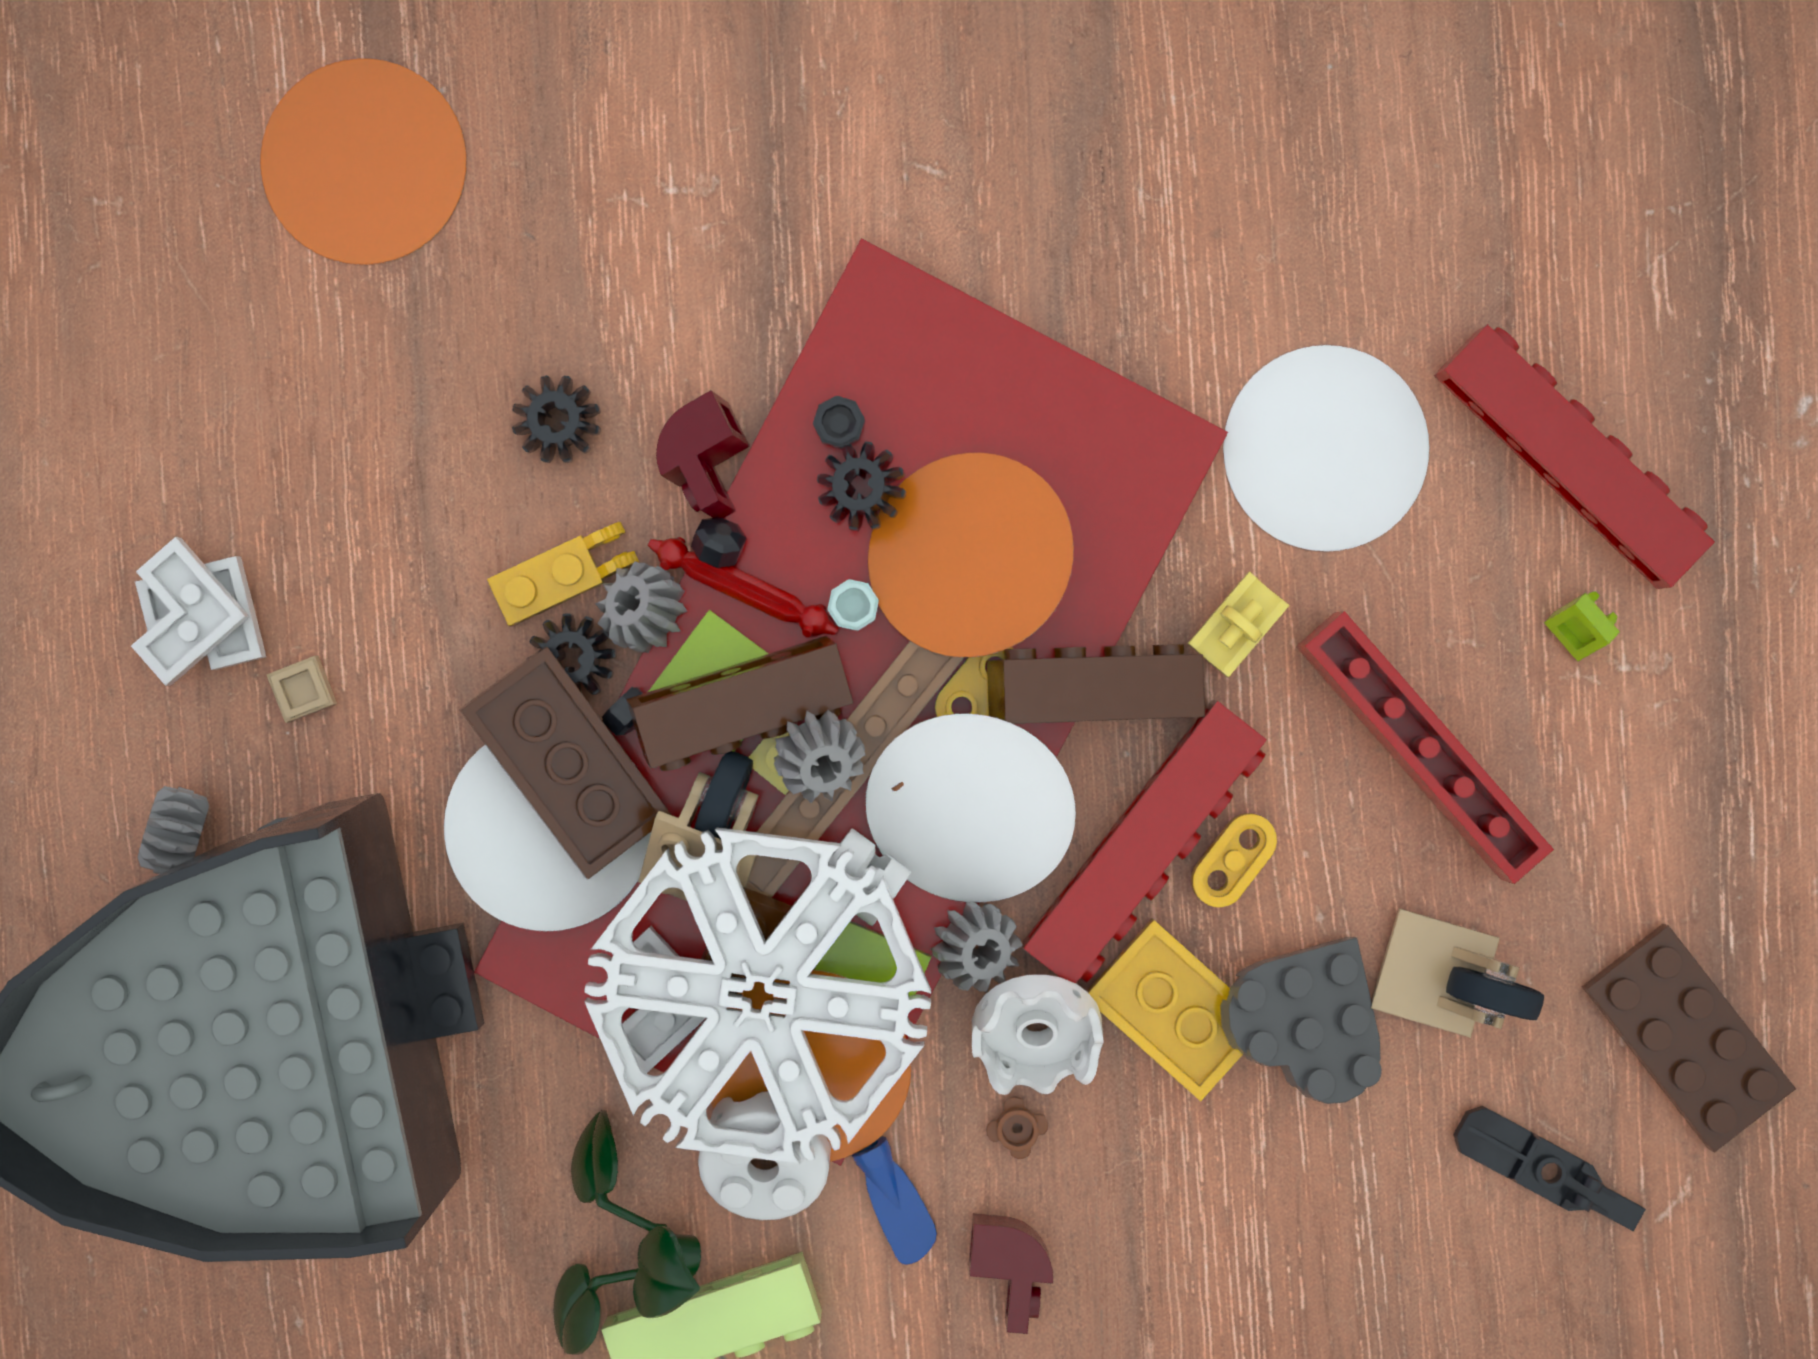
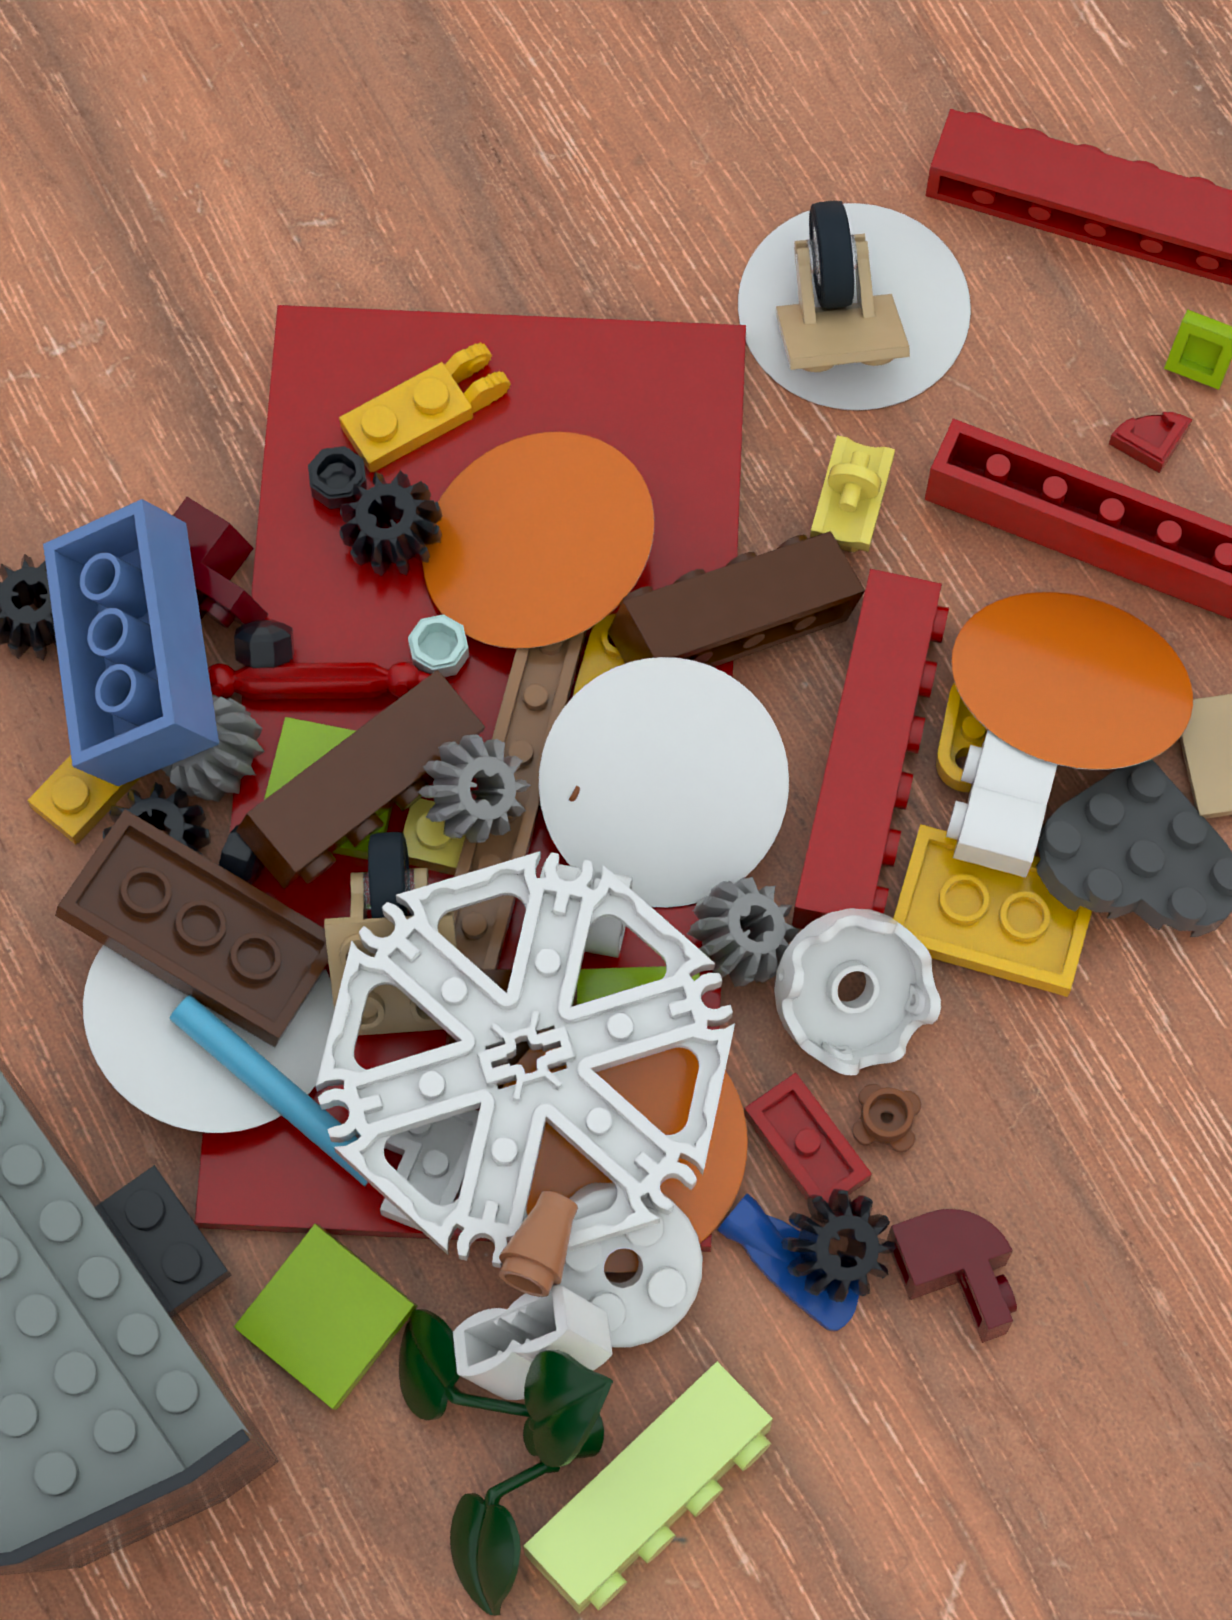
camera: 25 degrees left, 20 degrees down
(538, 1087) = (325, 1316): none -> lime tile
(561, 894) = (260, 1077): none -> medium azure piece
(609, 507) = (130, 644): none -> medium blue brick
(669, 1199) = (501, 1343): none -> white brick
(697, 1153) = (539, 1247): none -> nougat cone
(929, 1218) = (827, 1223): none -> black gear
(931, 390) = (422, 408): none -> yellow hinge
(947, 1122) = (806, 1140): none -> red plate
(1223, 942) = (1003, 809): none -> white brick
(1309, 476) = (839, 328): none -> tan plate
(1327, 862) = (1072, 680): none -> orange sticker
(1502, 677) = (1151, 438): none -> red tile

